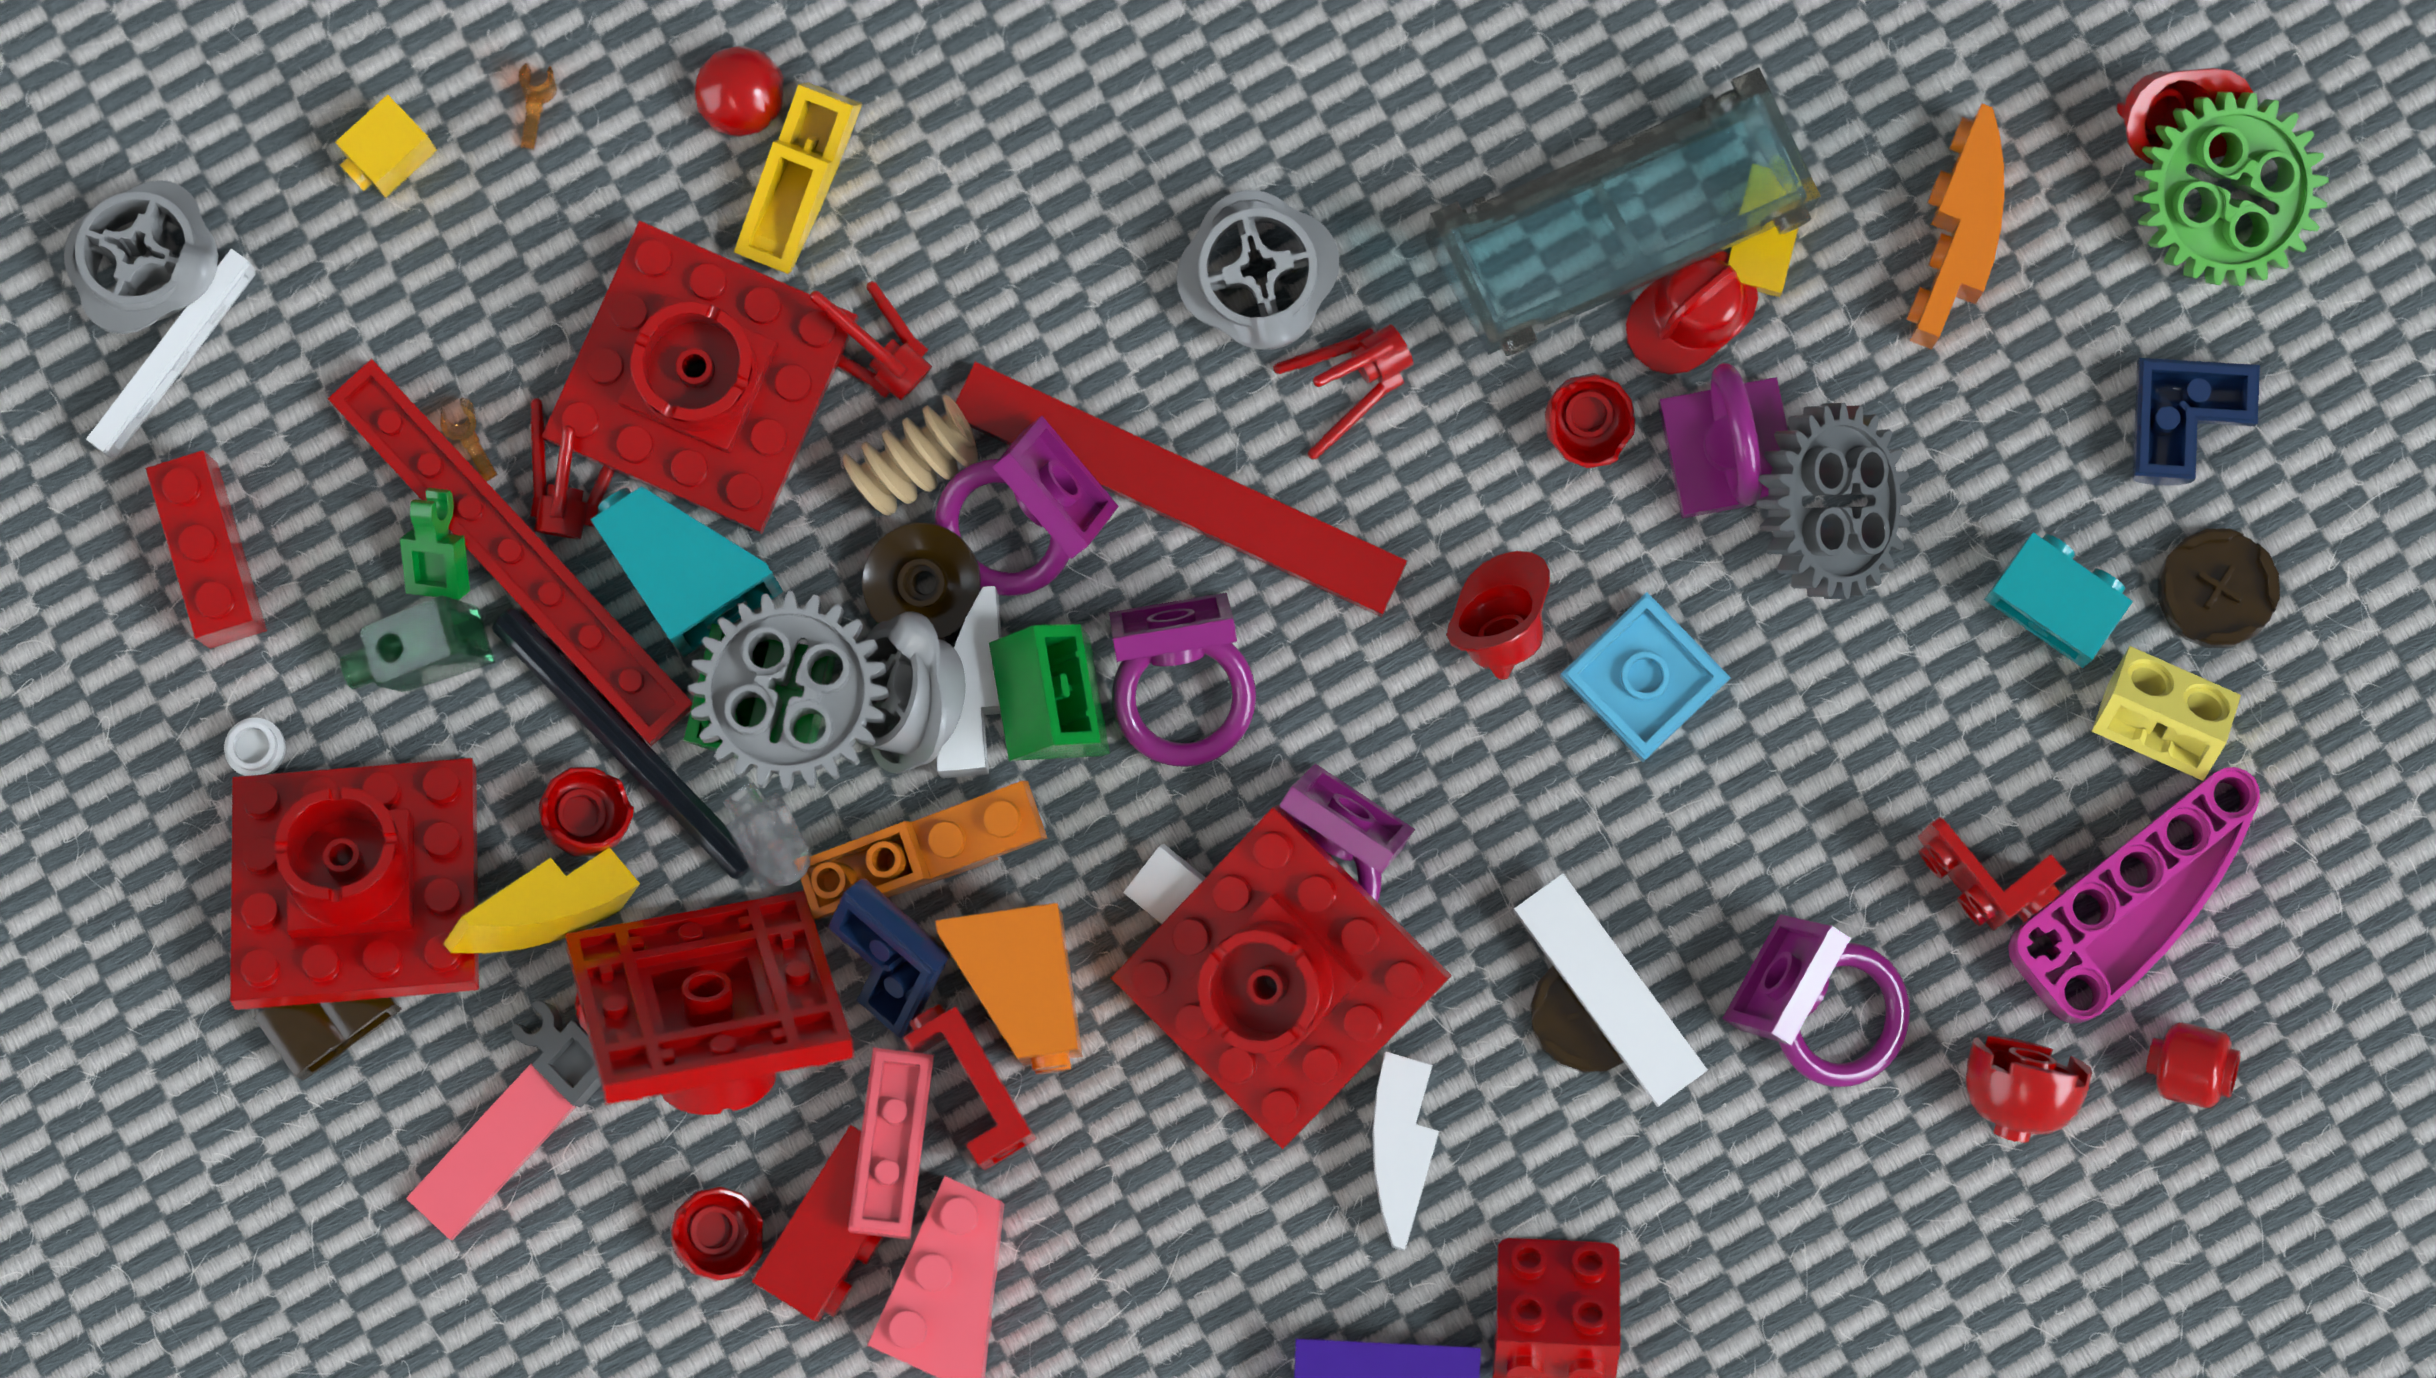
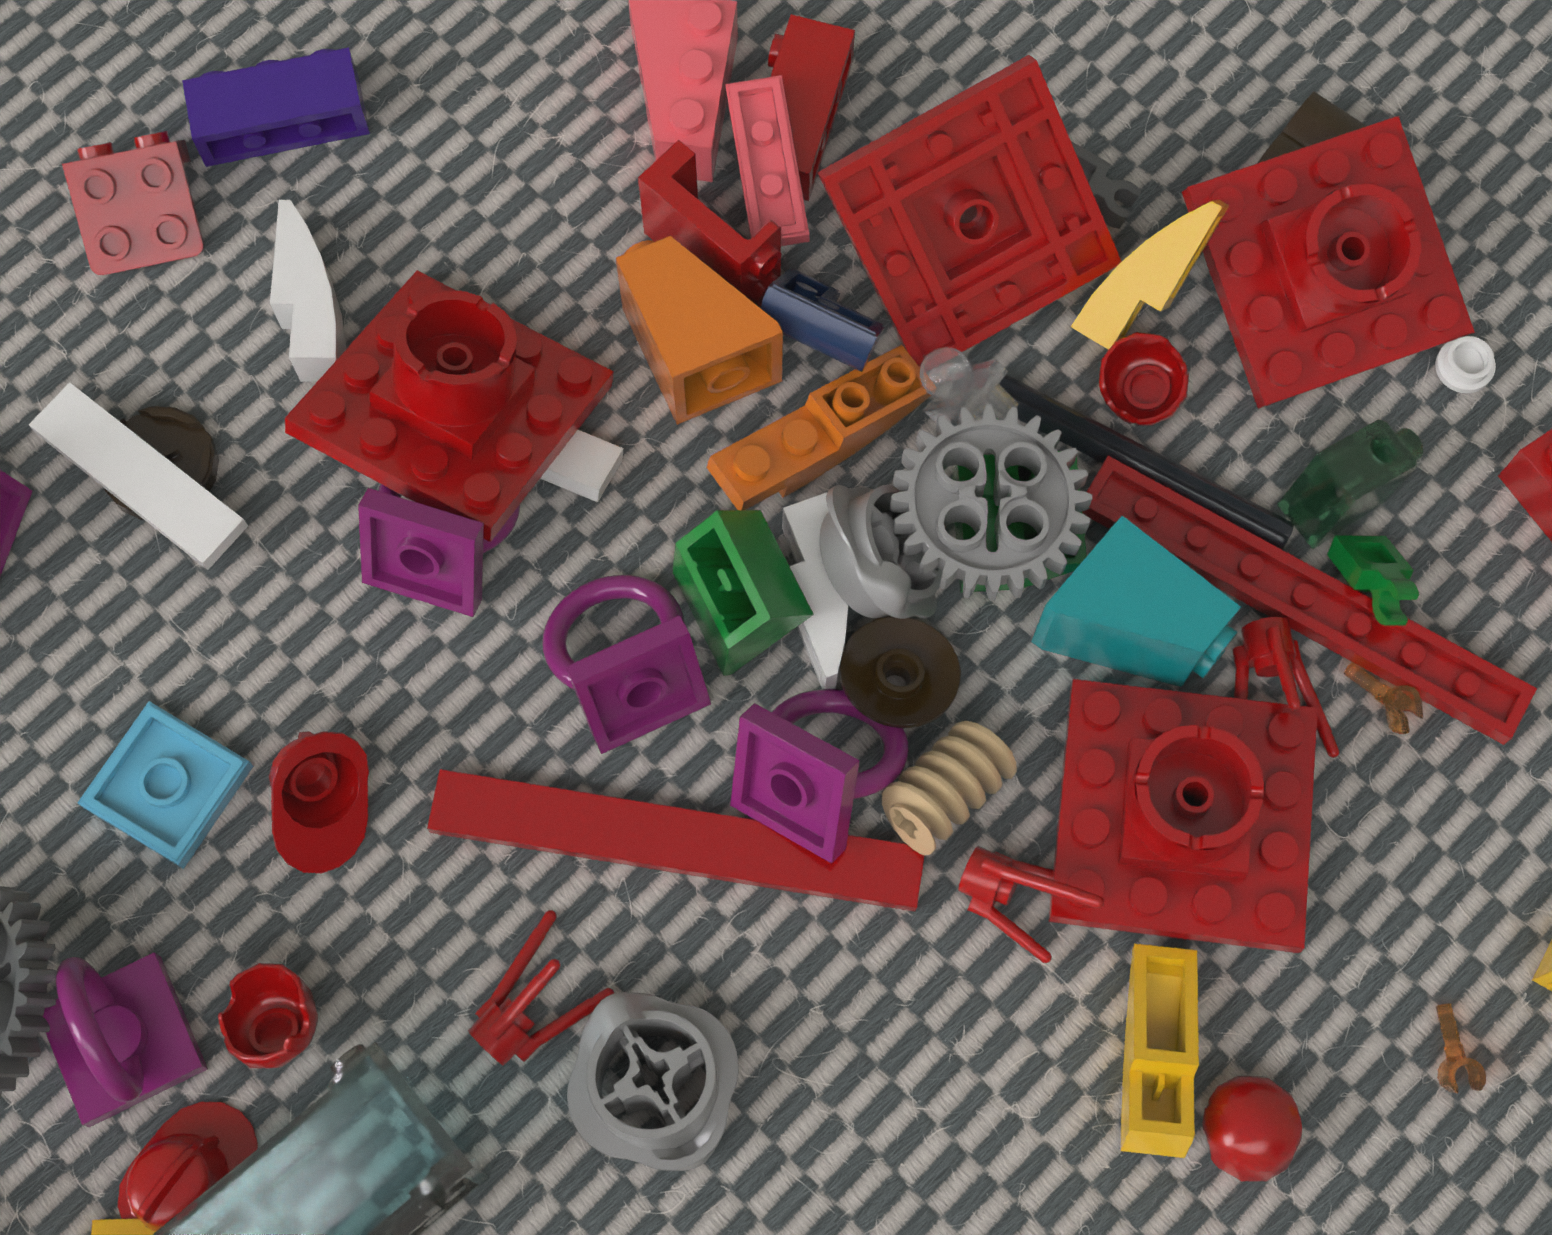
camera: 160 degrees right, 10 degrees down
(490, 1153) = (1122, 90): coral tile -> none
(717, 1234) = (898, 67): red hair -> none

